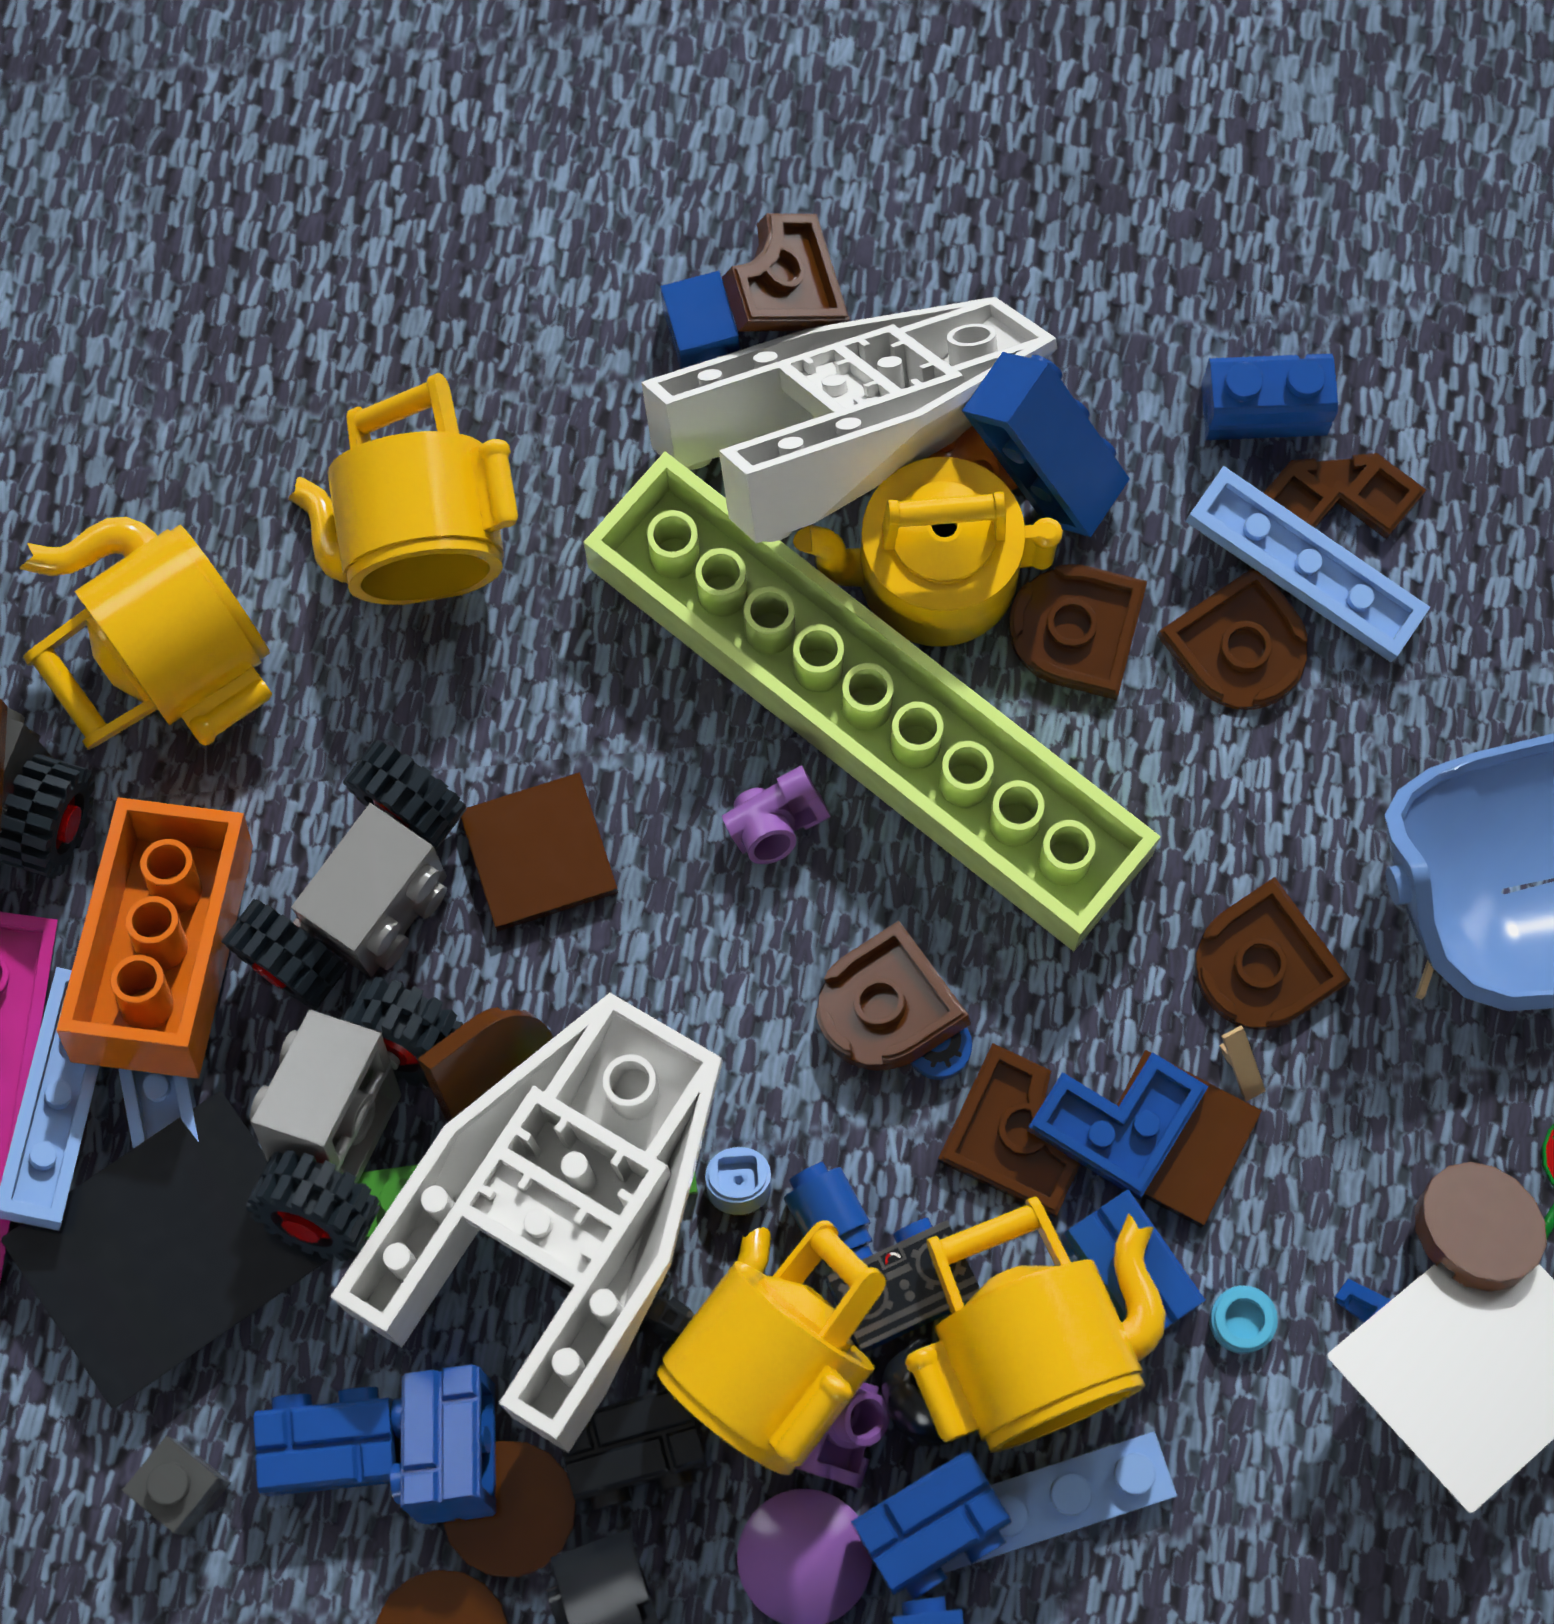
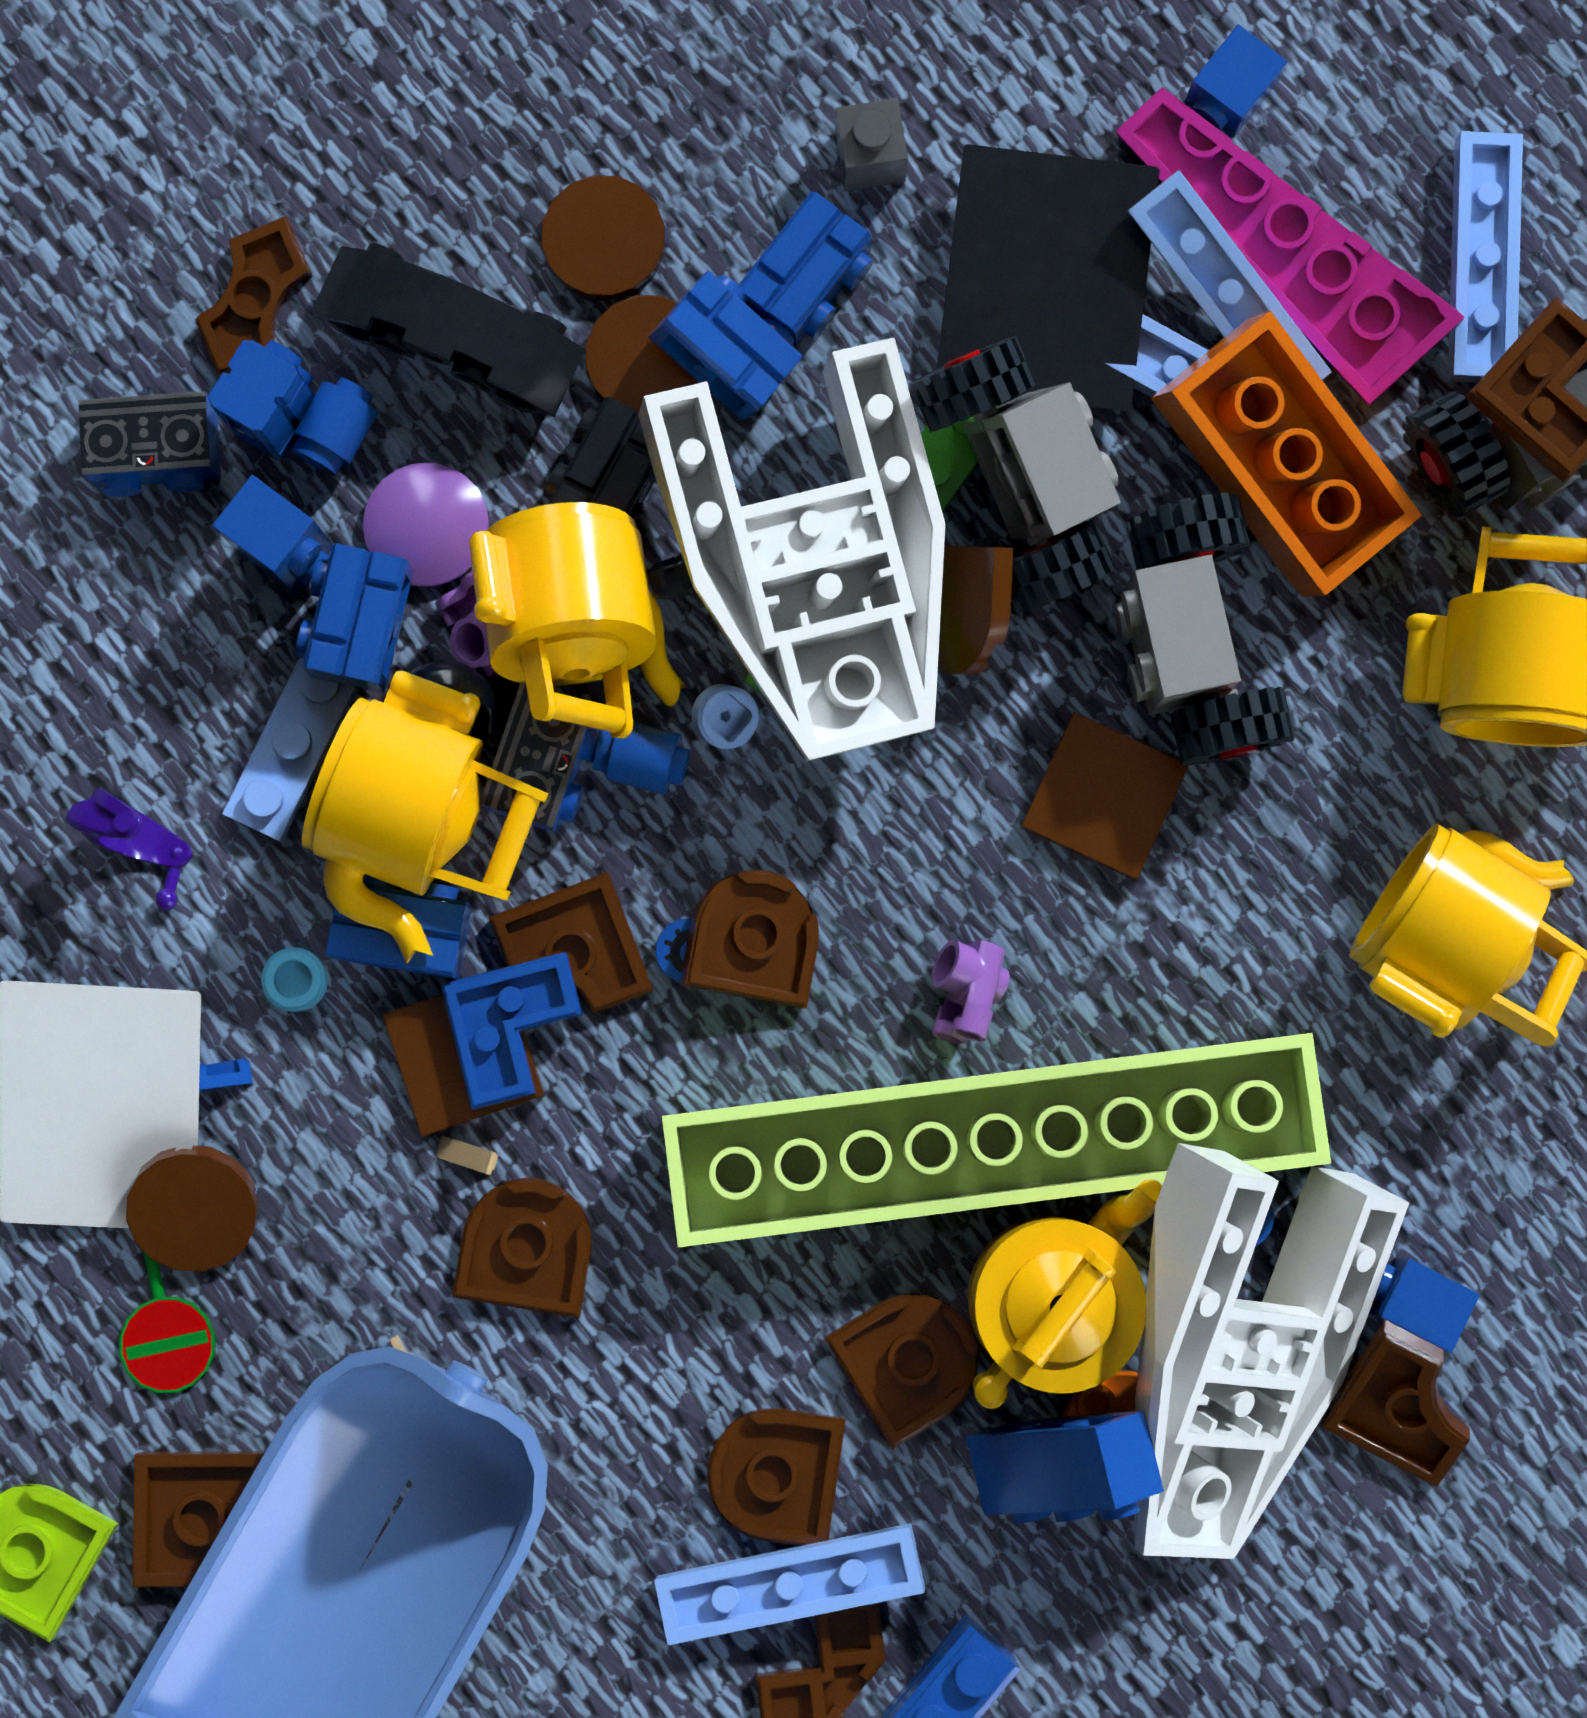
camera: 130 degrees right, 10 degrees up
(1257, 1549) = (133, 835): none -> dark purple helmet

